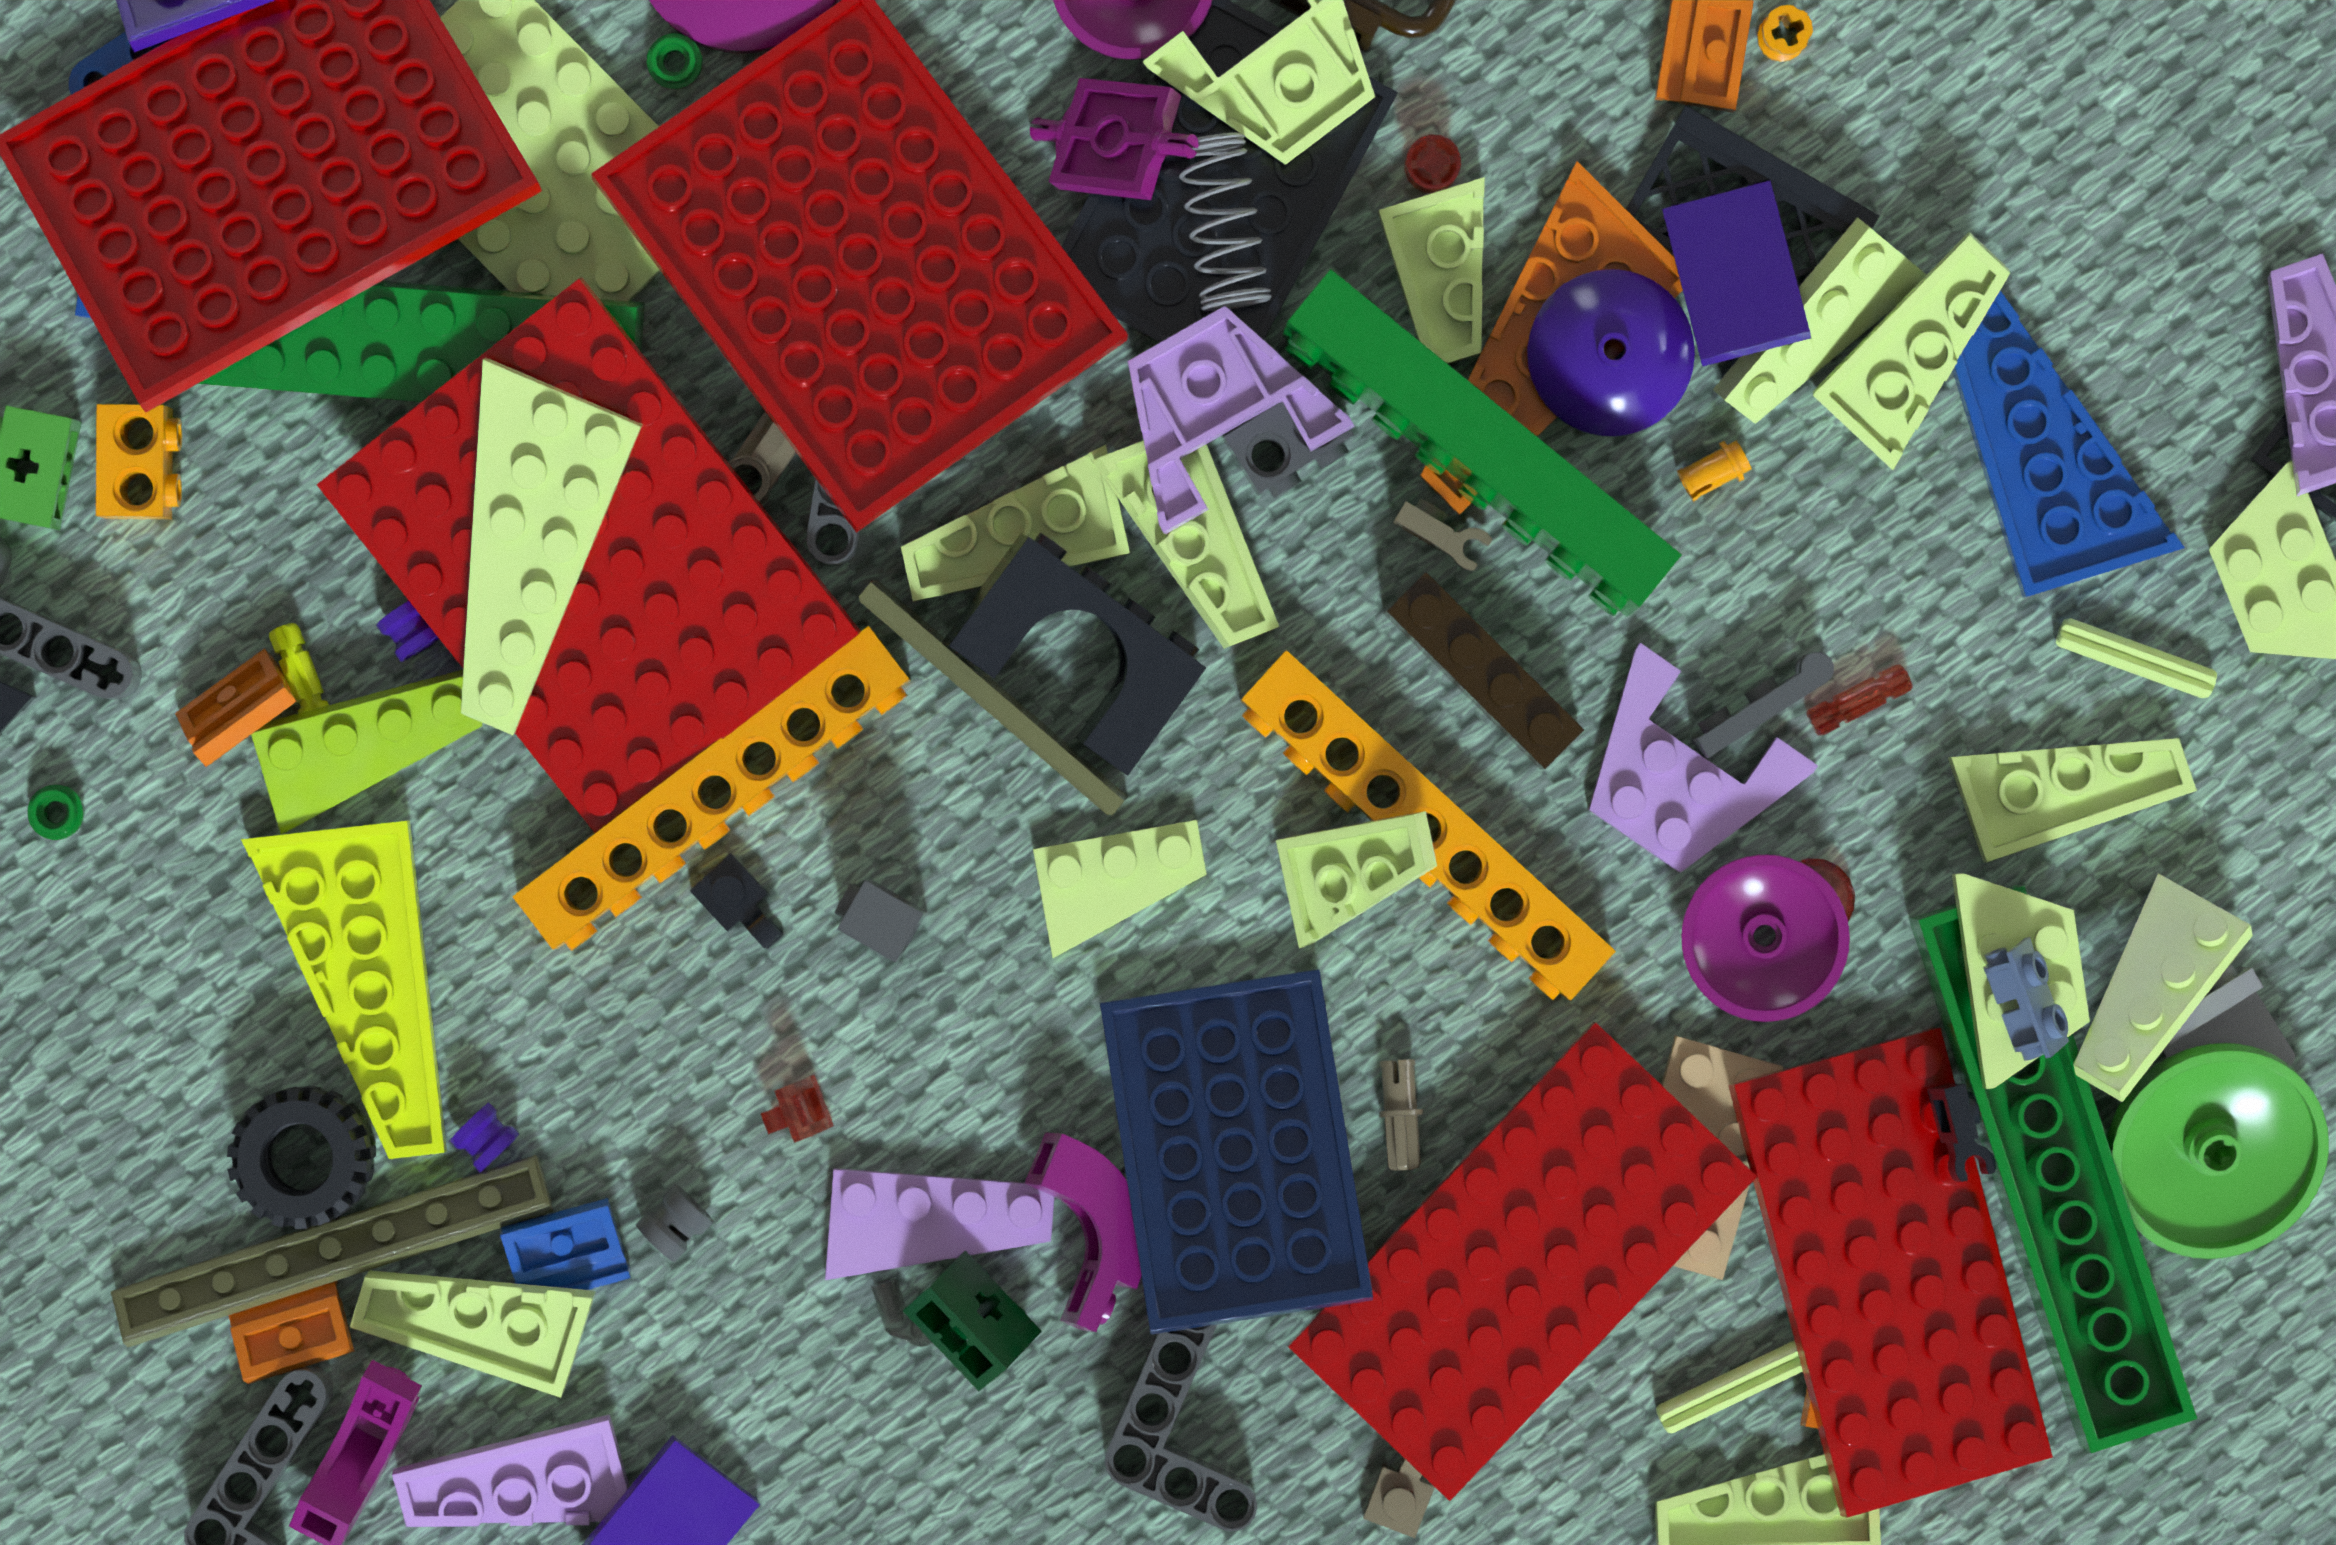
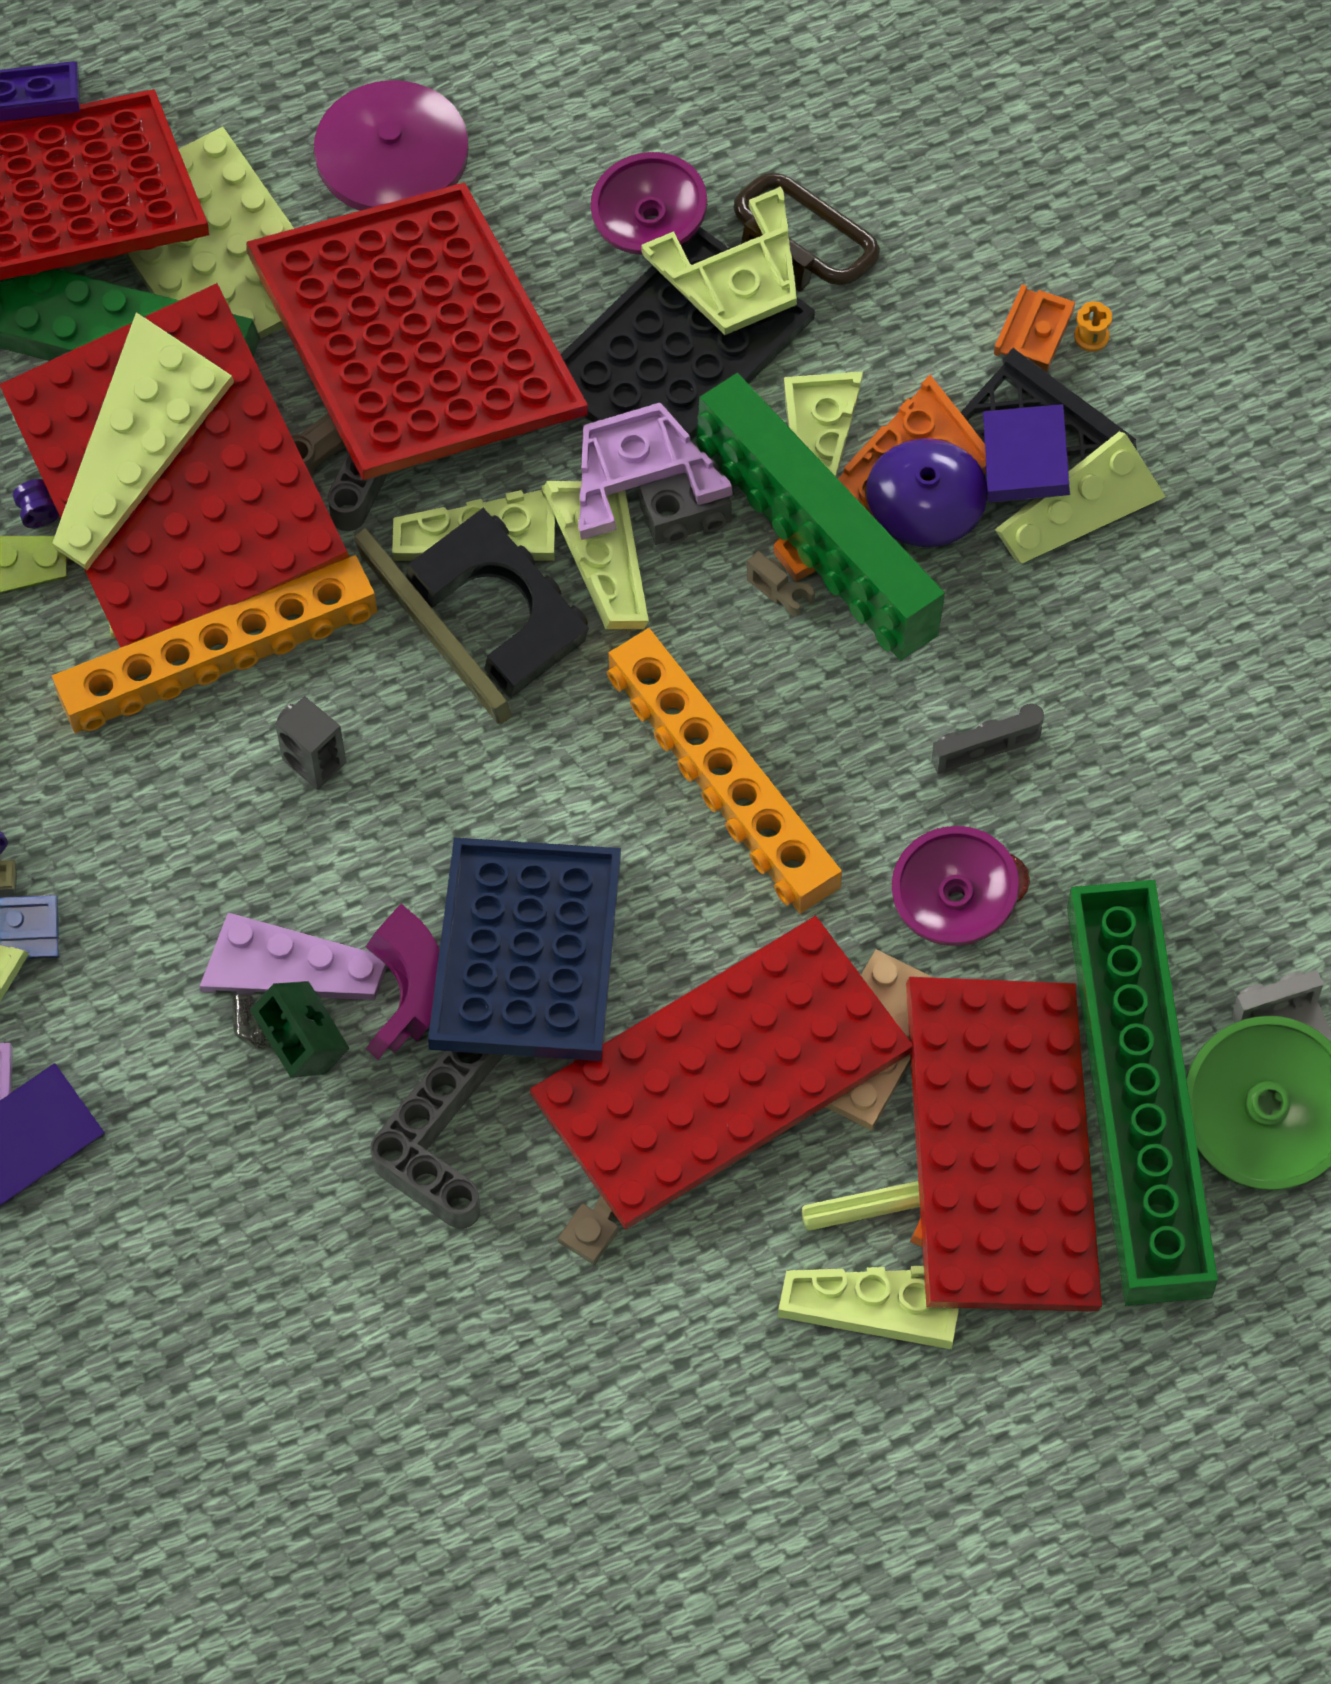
camera: 15 degrees right, 25 degrees down
(662, 48) = (323, 196): green plate -> none
(684, 1214) = (109, 918): dark grey wheel -> none
(733, 897) = (211, 722): black plate -> none
(799, 1109) = (214, 865): clear red tile -> none
(1112, 877) = (485, 762): yellowish green wing -> none
(1114, 138) = (610, 292): magenta plate -> none
(1225, 146) = (672, 319): light grey piece -> none
(1350, 869) = (660, 777): yellowish green wing -> none
(1401, 1114) = (657, 960): dark tan axle -> none
(1440, 153) = (828, 350): clear red wheel -> none
(1483, 671) = (788, 676): dark brown brick -> none
(1668, 792) = (906, 789): lavender wing -> none
(1714, 470) = (985, 586): light orange pin -> none
(1859, 699) = (1060, 754): clear red axle -> none
(1906, 358) = (1138, 535): yellowish green wing -> none
(1956, 1121) = (1072, 1033): black plate -> none
(2001, 918) = (1138, 933): yellowish green wing -> none
(2022, 974) = (1136, 919): sand blue hinge -> none
(2048, 466) = (1226, 625): blue wing -> none
(2050, 793) = (1189, 843): yellowish green wing -> none
(2136, 658) = (1270, 767): yellowish green axle -> none
(2161, 978) = (1243, 968): yellowish green wing -> none

